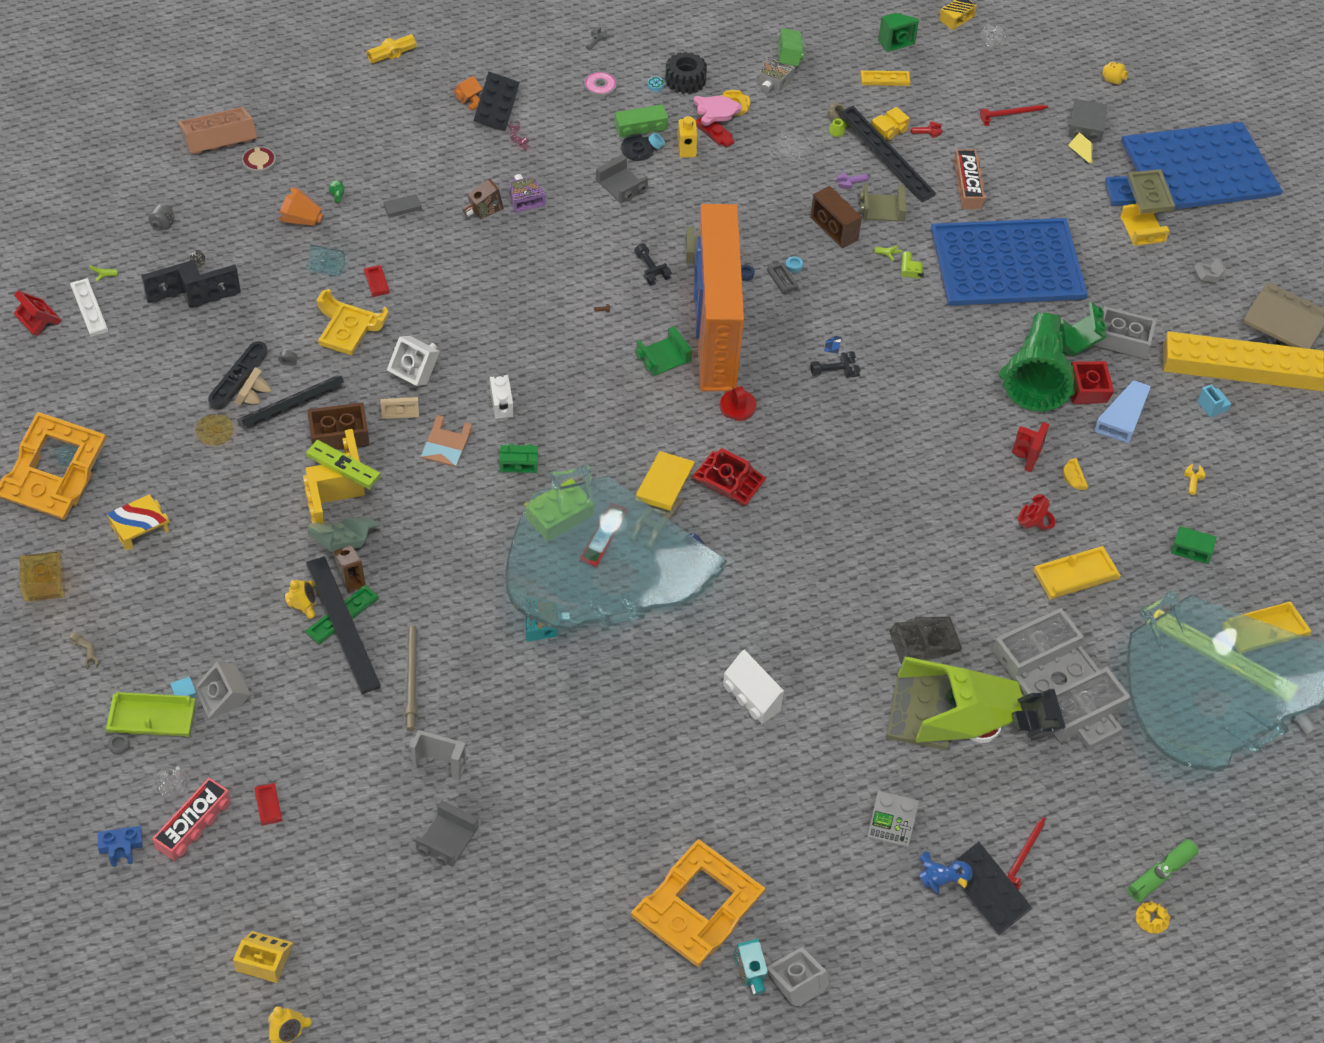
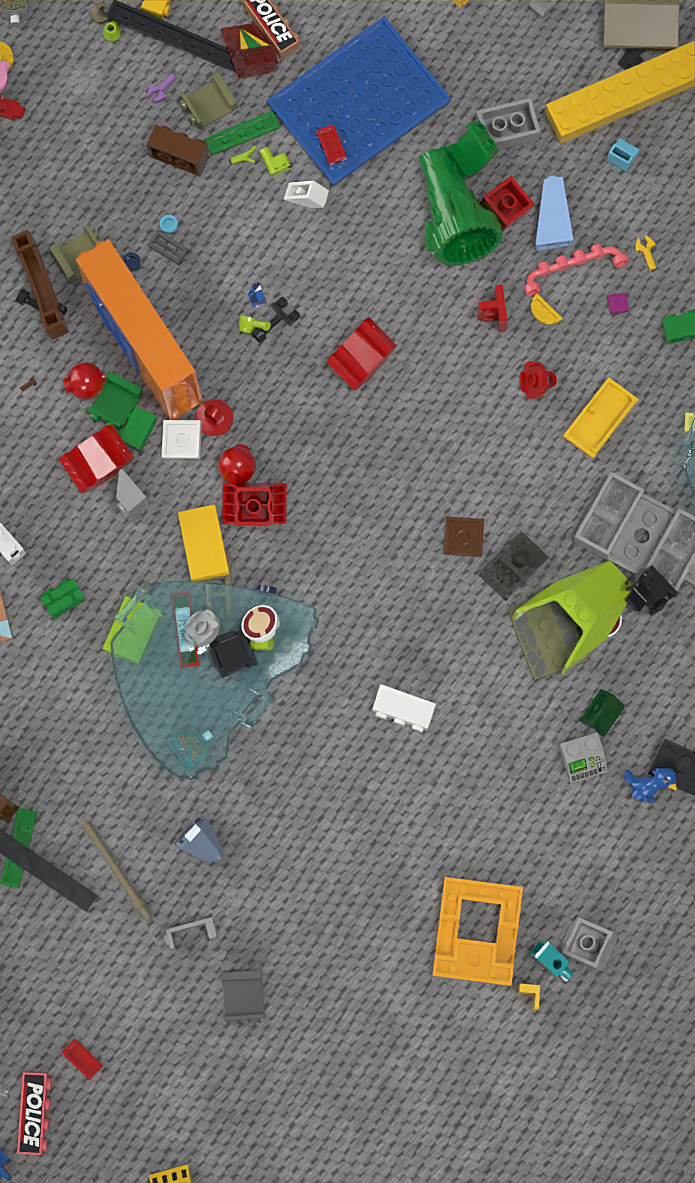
camera: 25 degrees left, 25 degrees up
(499, 689) = (201, 841): none -> sand blue cone
(618, 532) = (202, 628): none -> light grey tile
(619, 376) = (97, 459): none -> red slope
(627, 415) = (129, 496): none -> light grey slope
(632, 566) = (232, 653): none -> black panel
(649, 324) = (85, 381): none -> red brick
(656, 263) = (40, 282): none -> reddish brown arch
(663, 570) = (267, 645): none -> lime piece
(668, 378) = (137, 429): none -> green brick
(671, 553) = (260, 623): none -> tile
(699, 404) = (181, 439): none -> white tile
(714, 978) = (531, 990): none -> yellow panel
(734, 439) = (237, 464): none -> red brick
(812, 354) = (248, 324): none -> lime bar
(894, 418) = (362, 354): none -> red slope
(895, 596) = (463, 536): none -> reddish brown tile
(896, 237) = (242, 133): none -> green tile
(923, 297) = (307, 194): none -> white slope
(935, 795) = (602, 712): none -> dark green panel
(939, 188) = (249, 50): none -> clear red slope
(965, 274) = (331, 144): none -> red tile
(1144, 501) = (618, 303): none -> magenta tile
(1166, 470) = (579, 258): none -> coral bar

